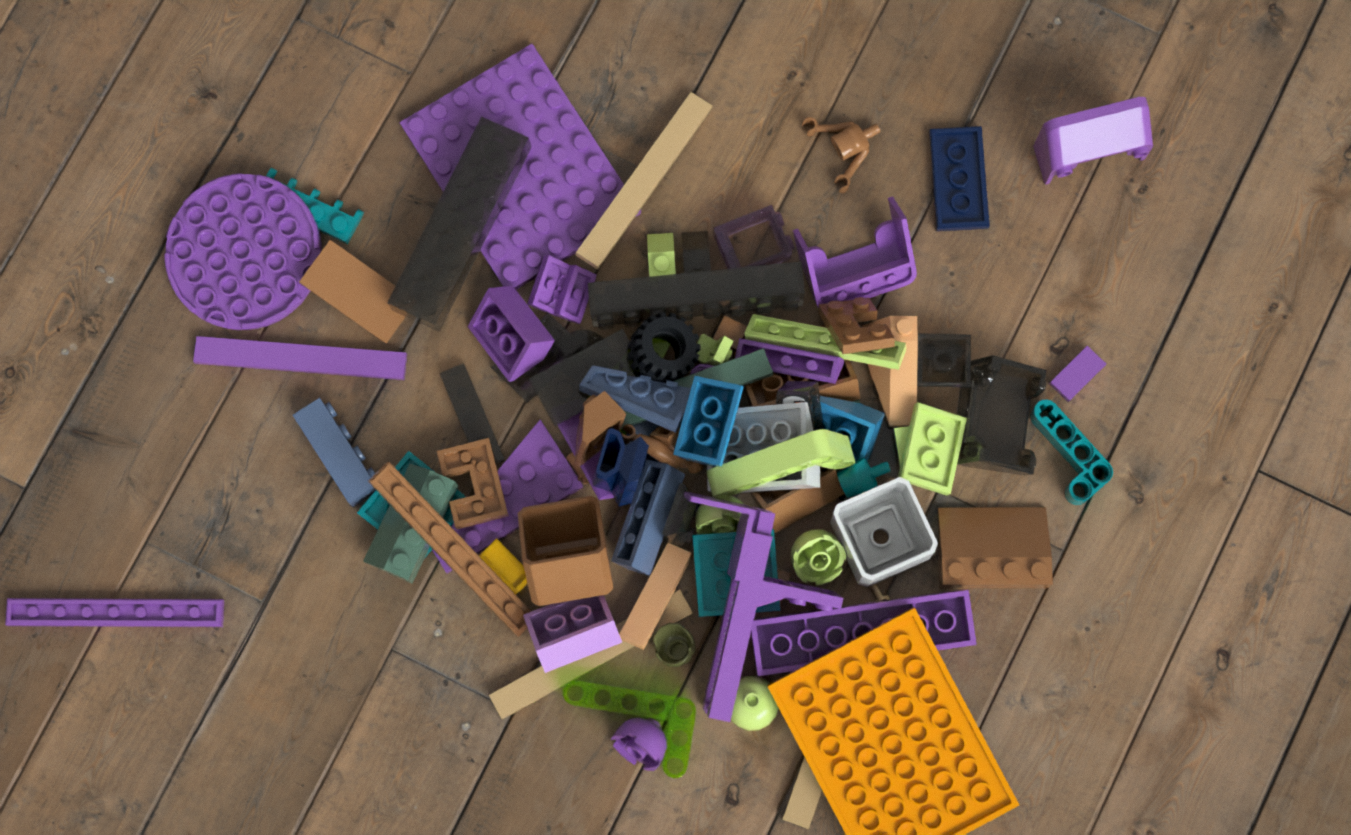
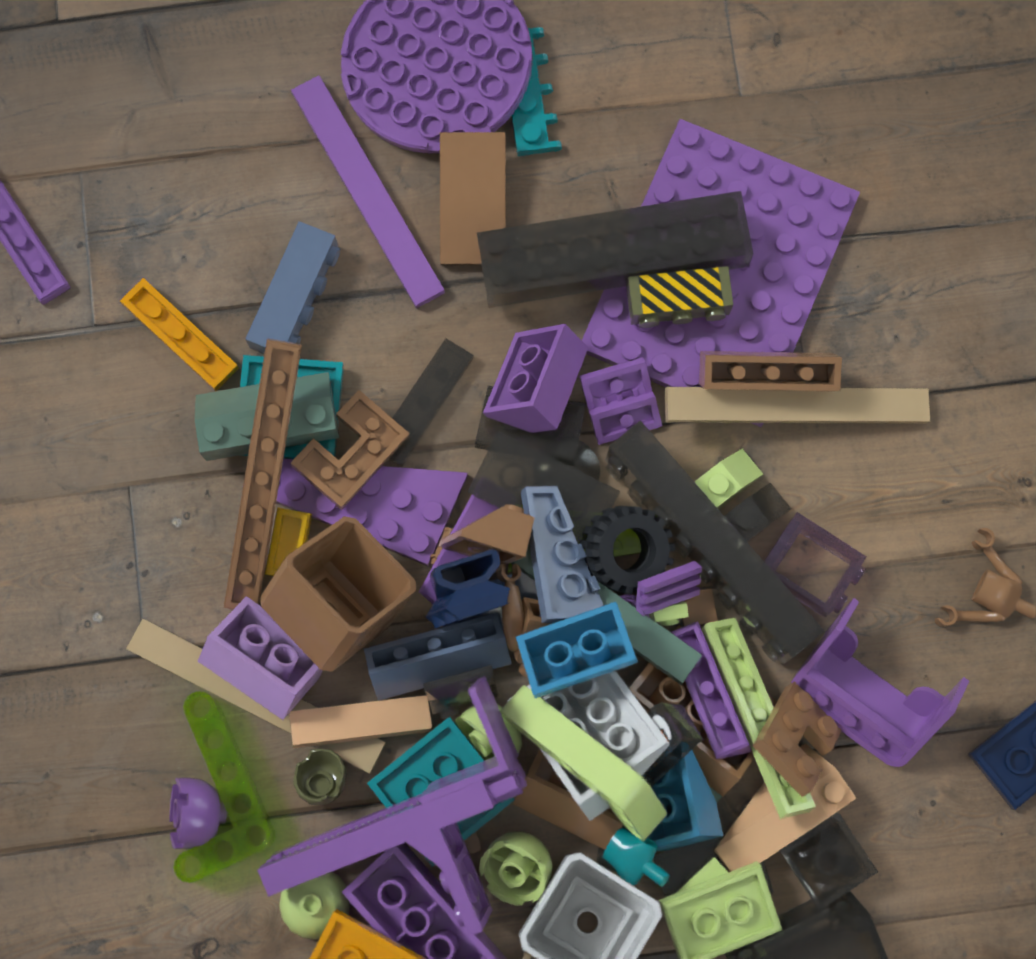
camera: 50 degrees right, 0 degrees up
(311, 546) = (179, 334): none -> light orange plate
(521, 204) = (679, 296): none -> brick
(611, 181) = (770, 371): none -> medium nougat brick
(707, 340) = (668, 593): none -> medium lavender tile

